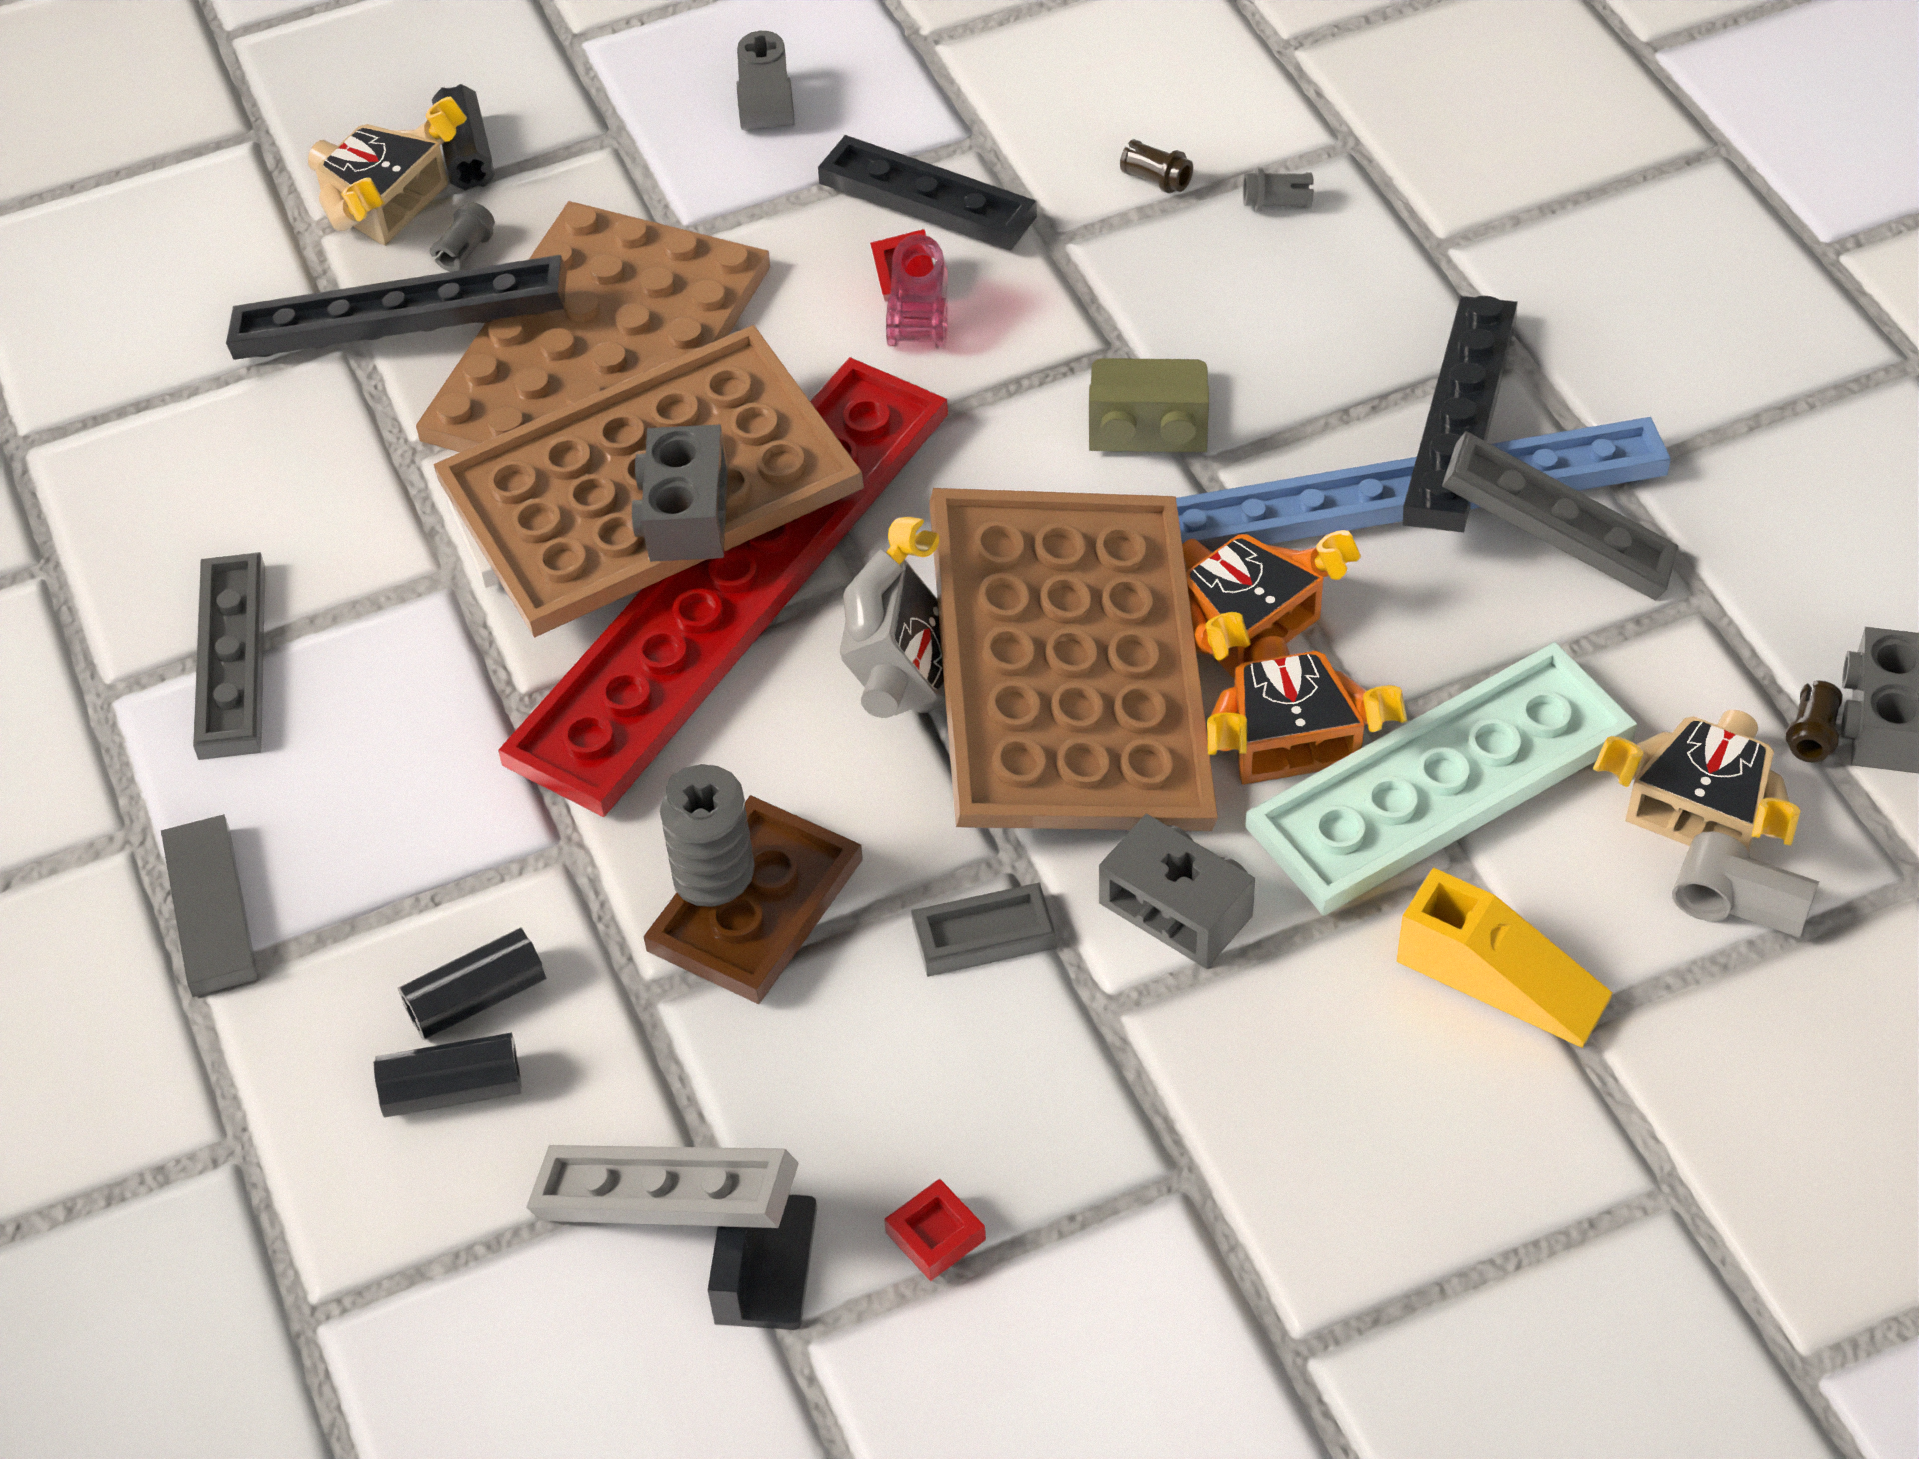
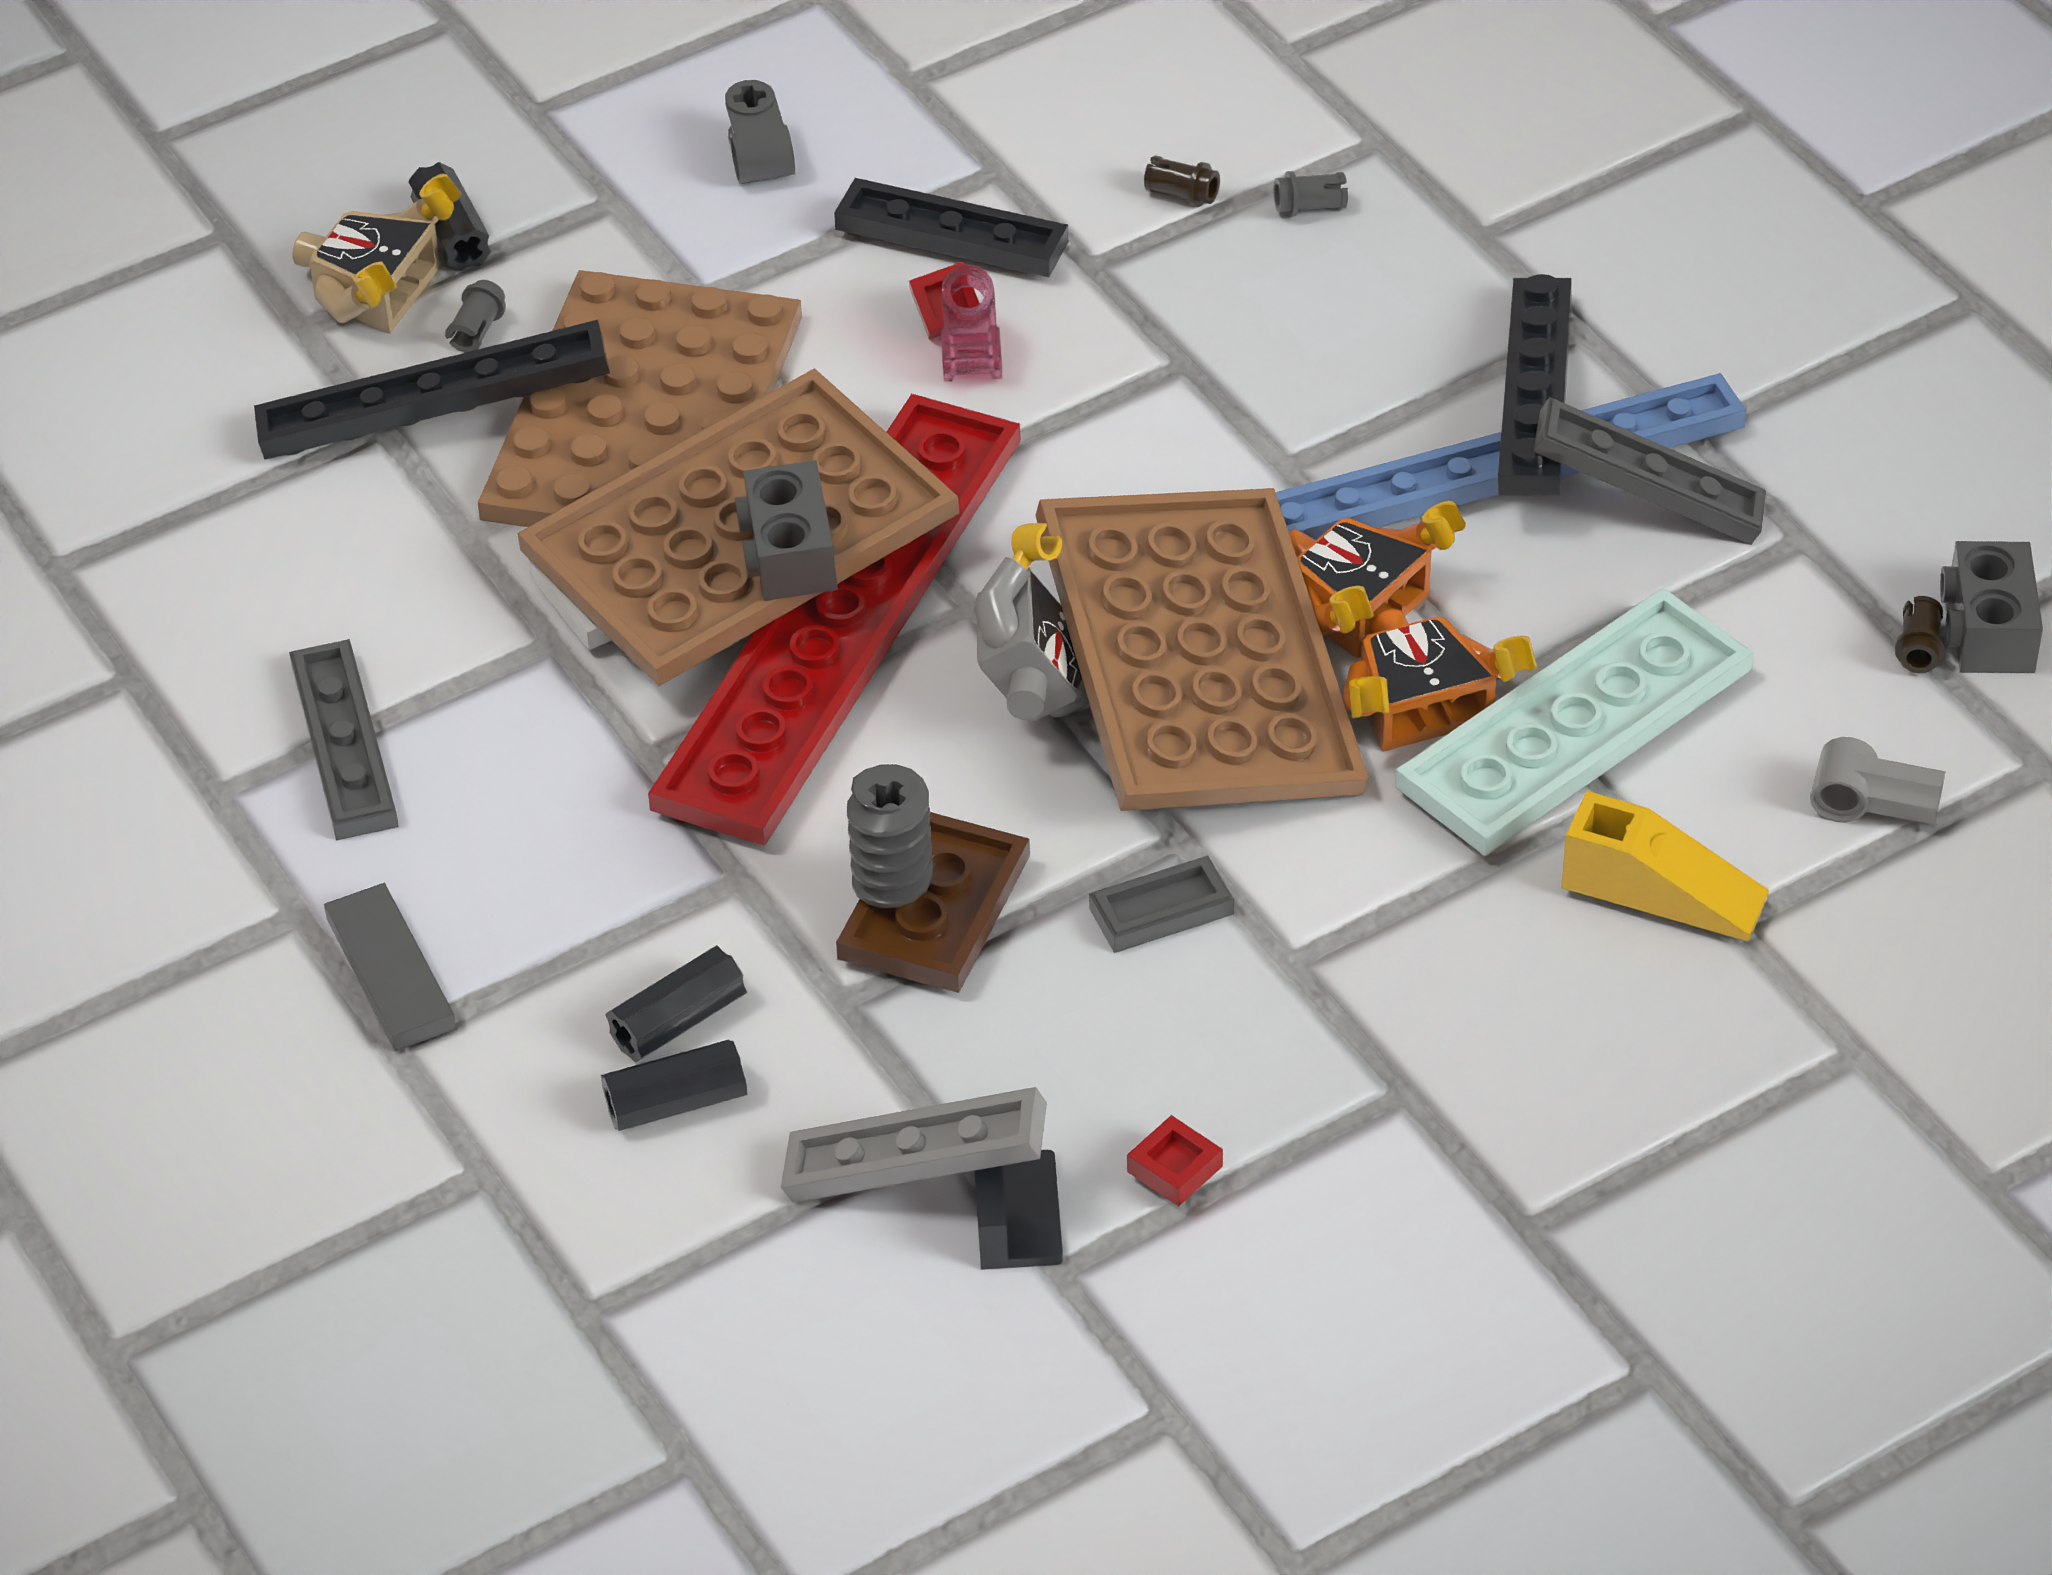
camera: 10 degrees left, 5 degrees down
(1148, 405) = (1224, 411): olive bracket -> none
(1176, 890) = (1342, 846): dark grey brick -> none
(1703, 781) = (1823, 695): torso -> none

